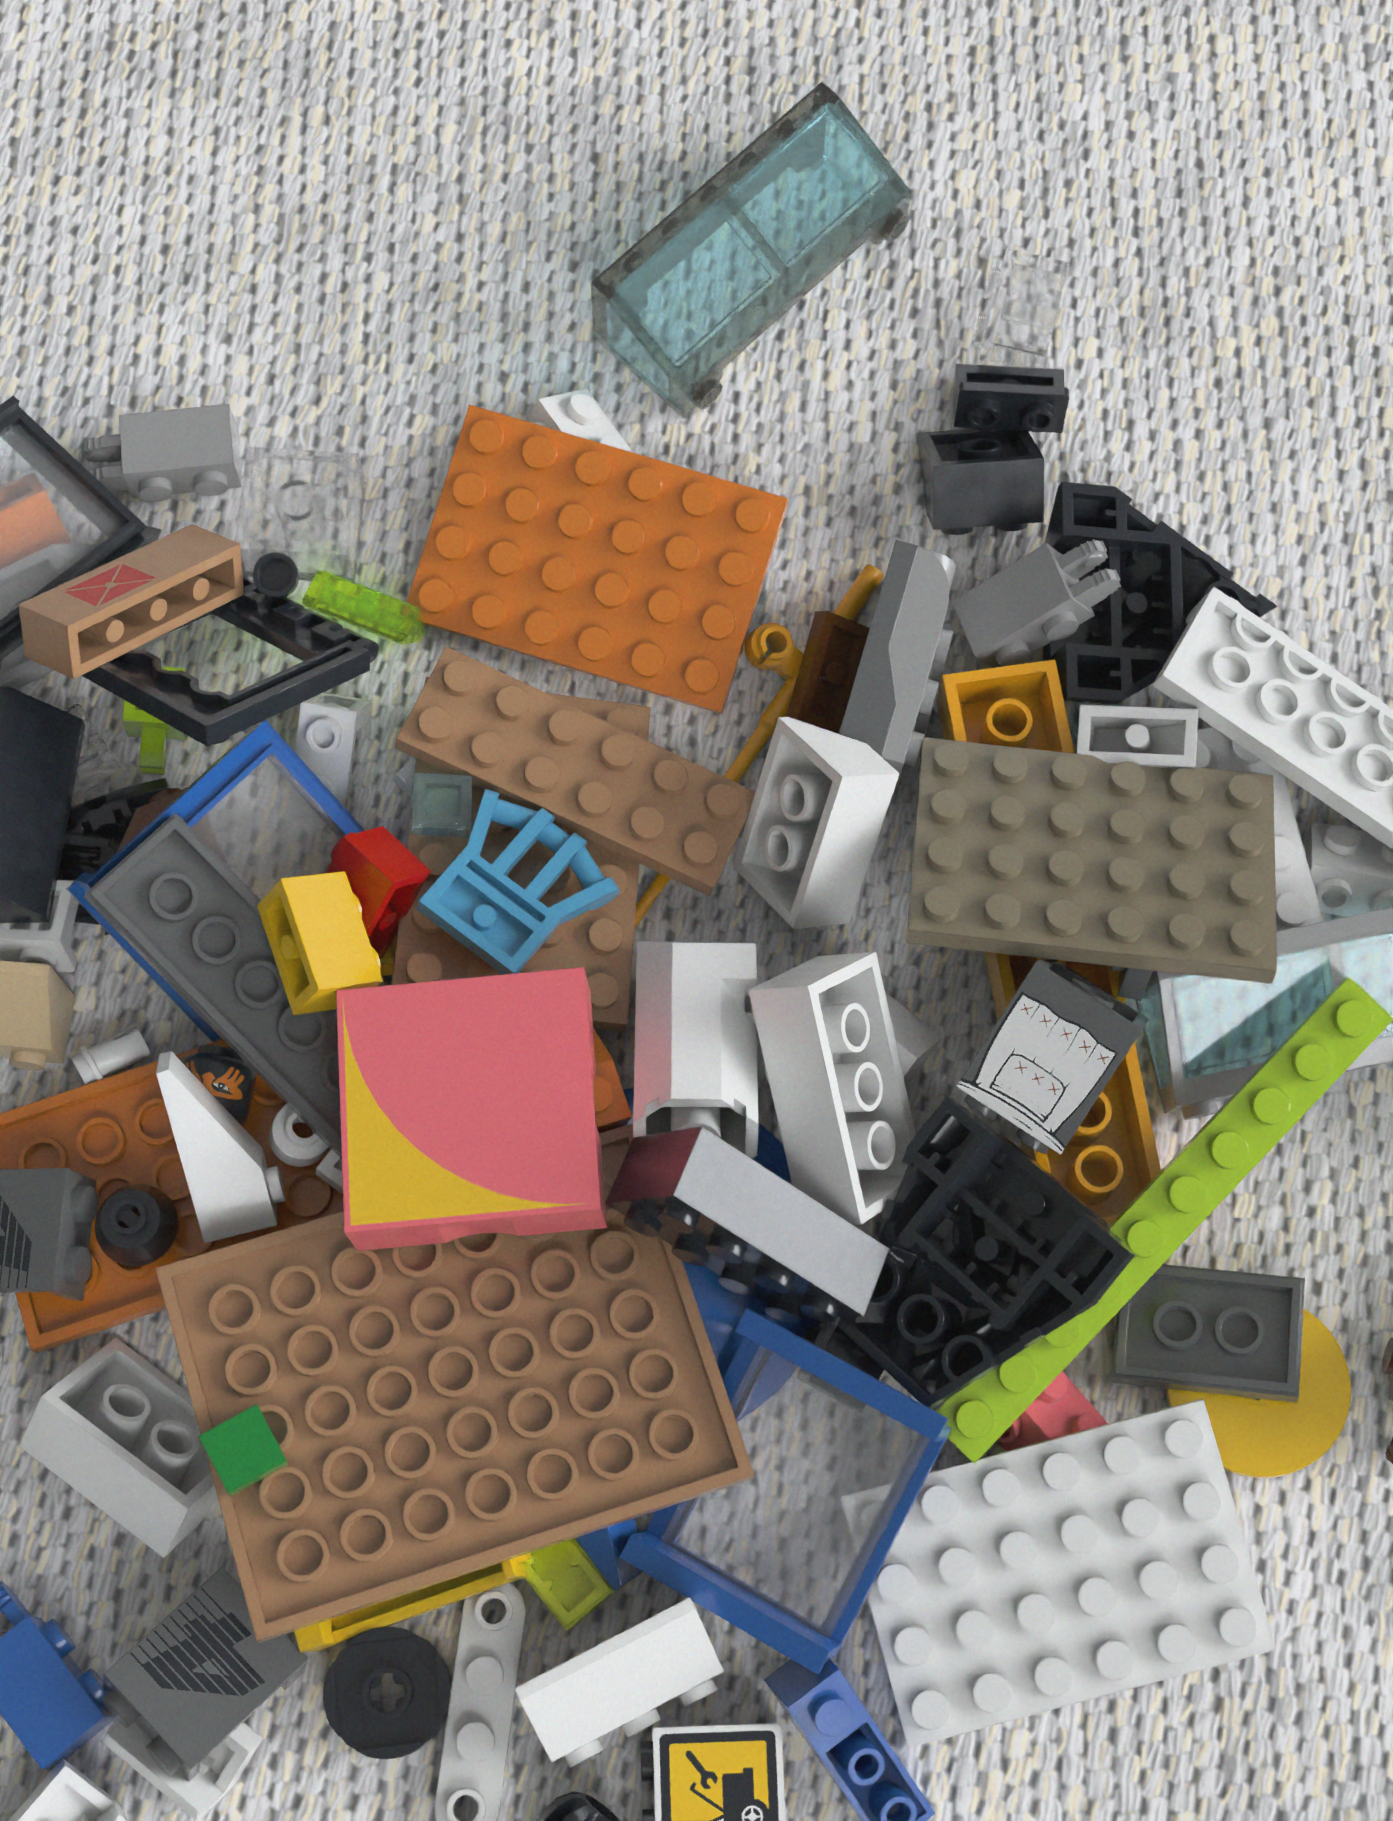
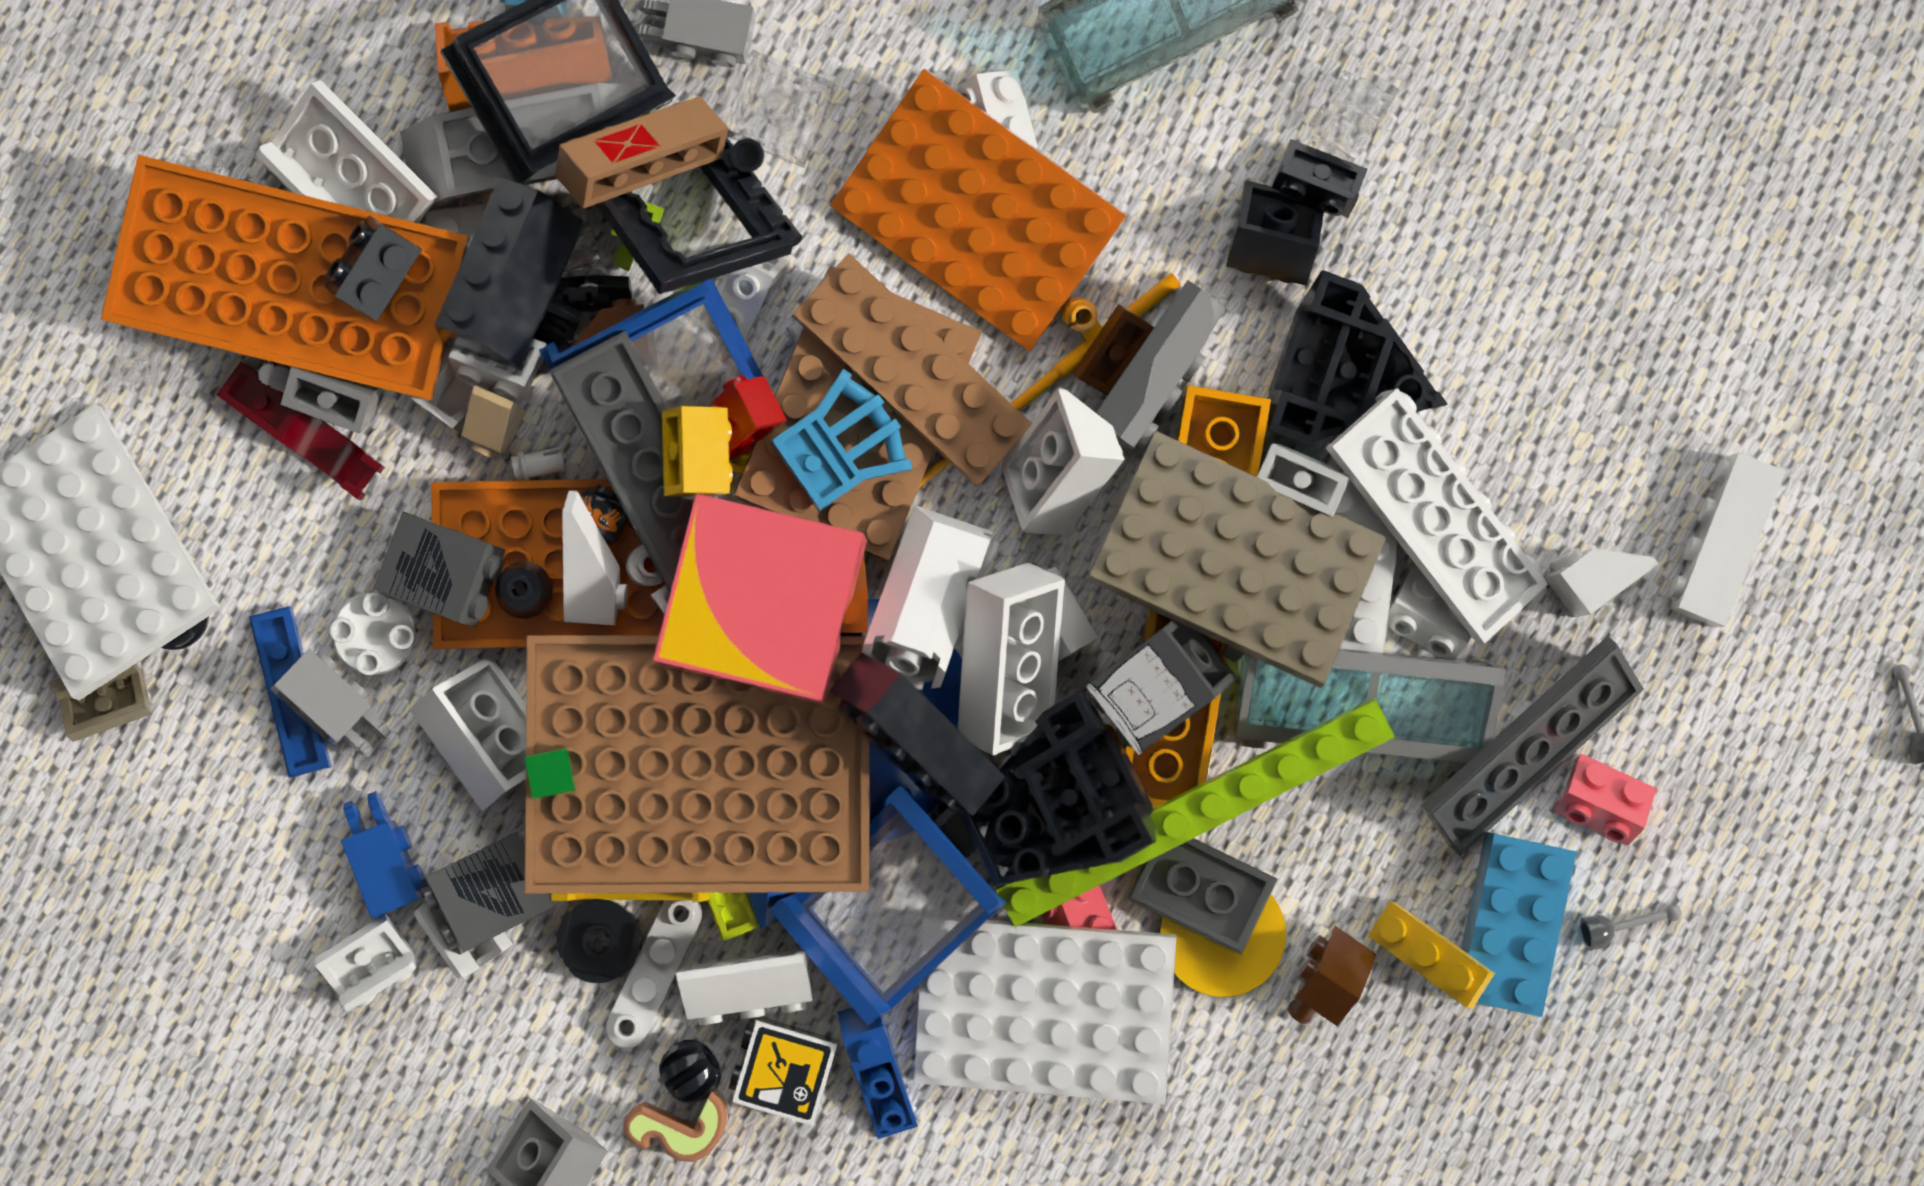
camera: 20 degrees right, 15 degrees up
(364, 608) = (802, 197): clear neon green slope -> none
(441, 805) = (810, 369): clear light blue tile -> none
(1034, 602) = (1271, 350): light grey hinge -> none

